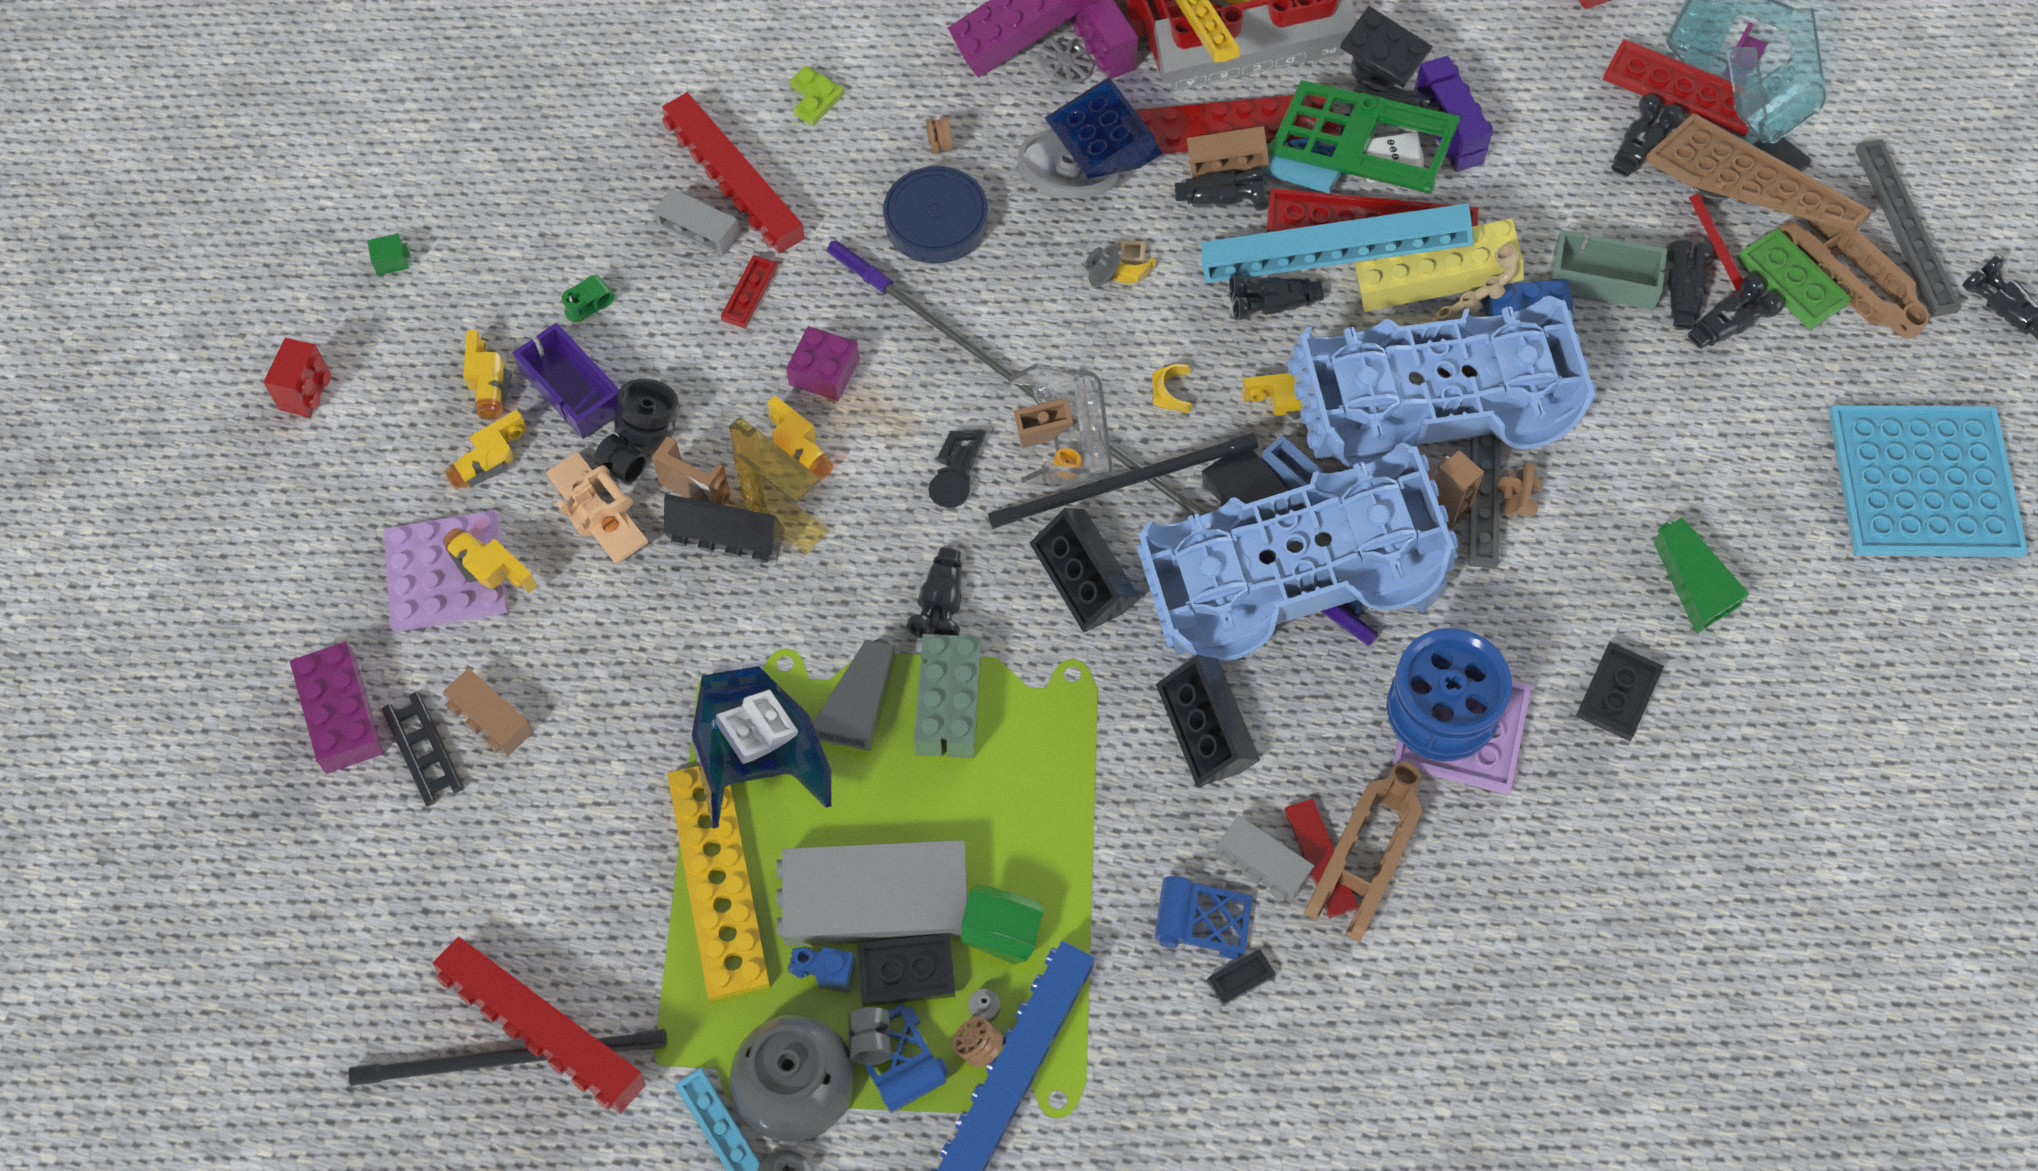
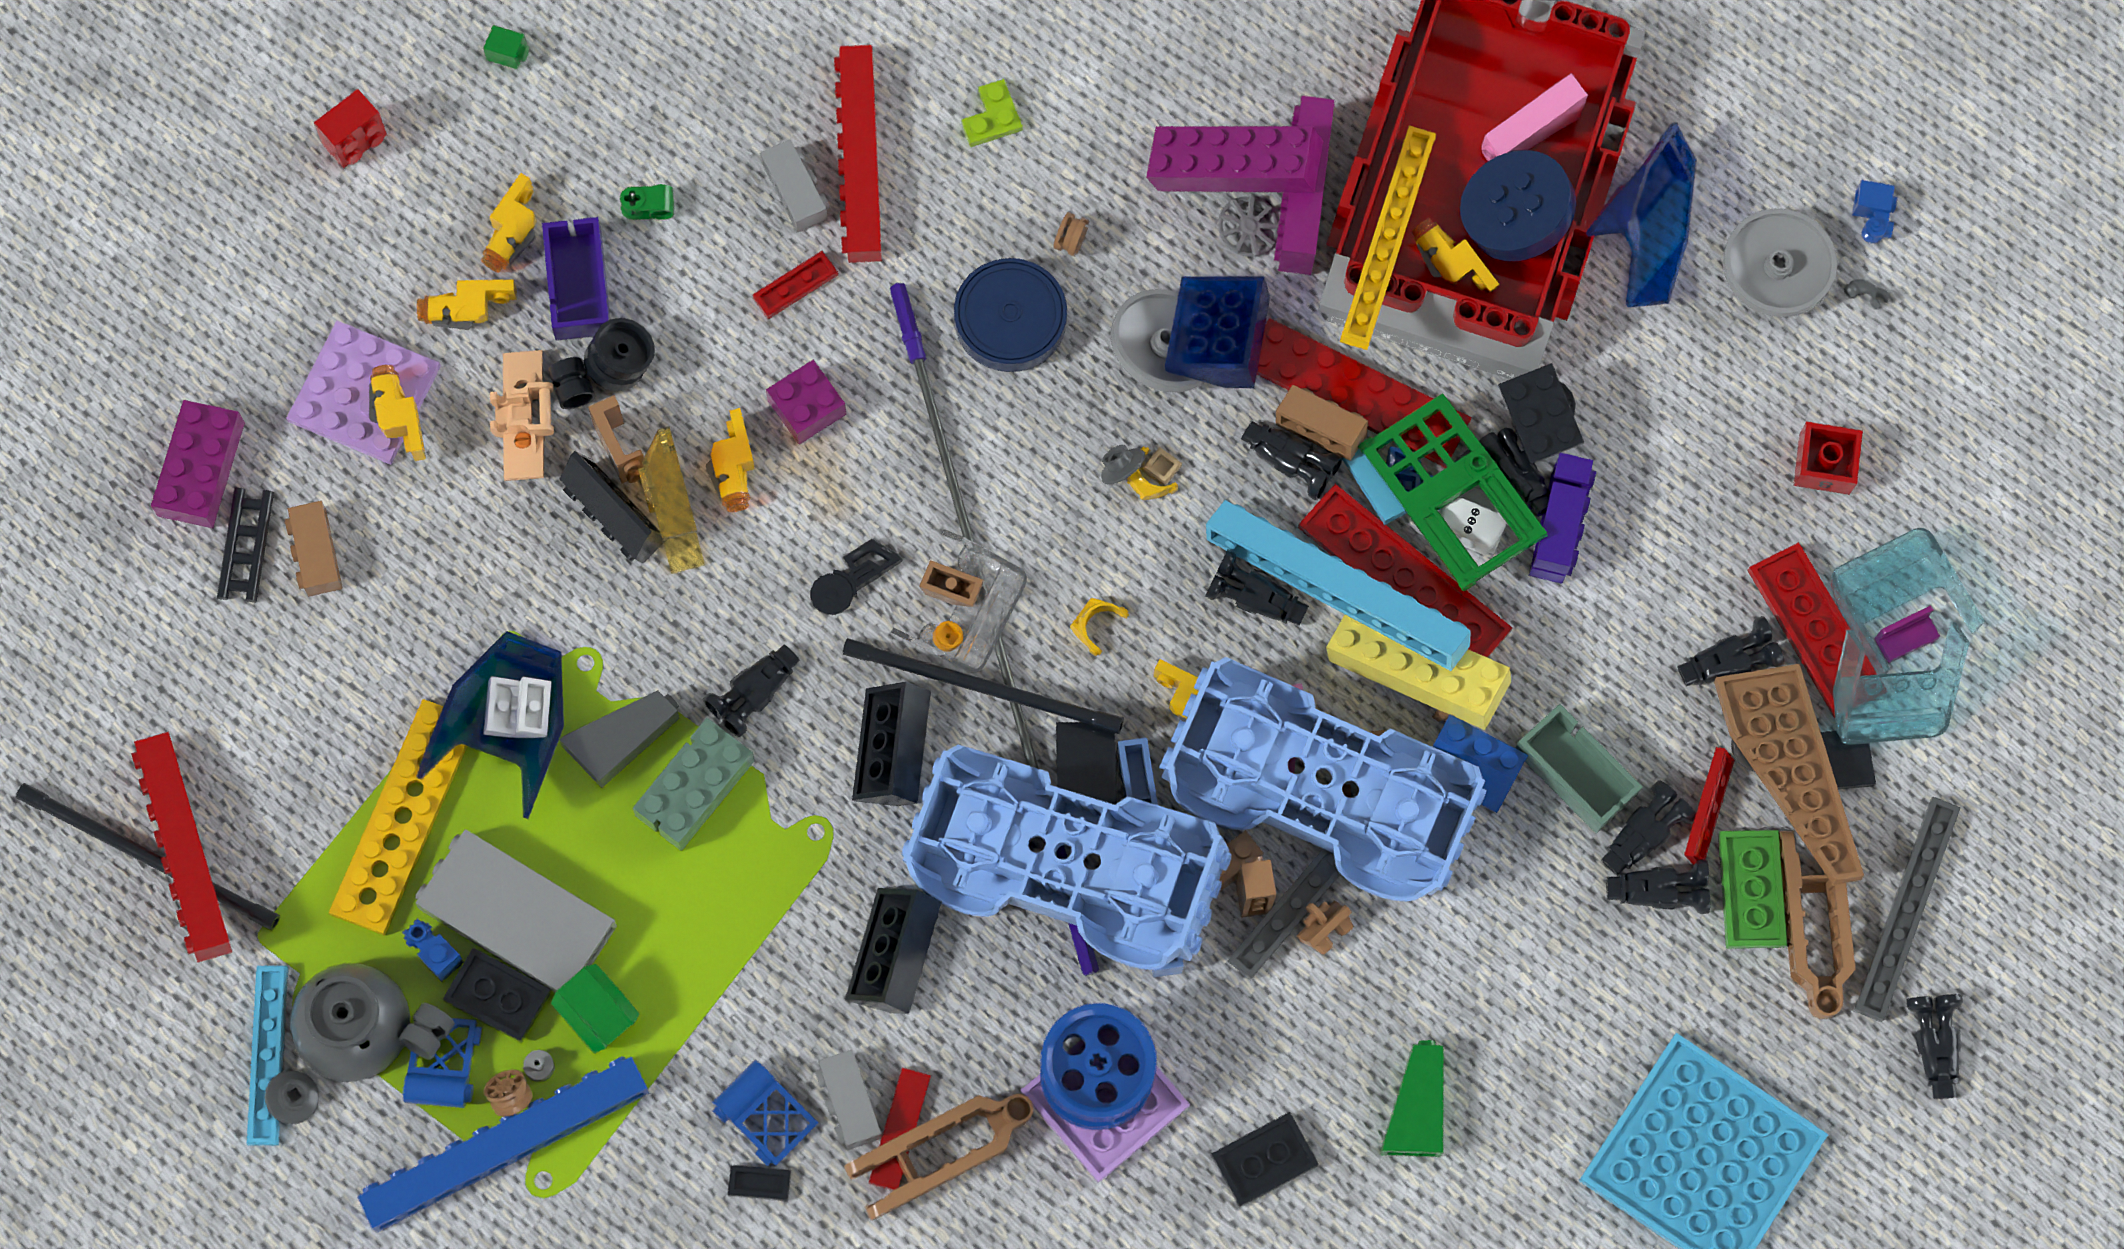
camera: 30 degrees right, 10 degrees up
(1493, 286) = (1465, 703): tan bar -> none

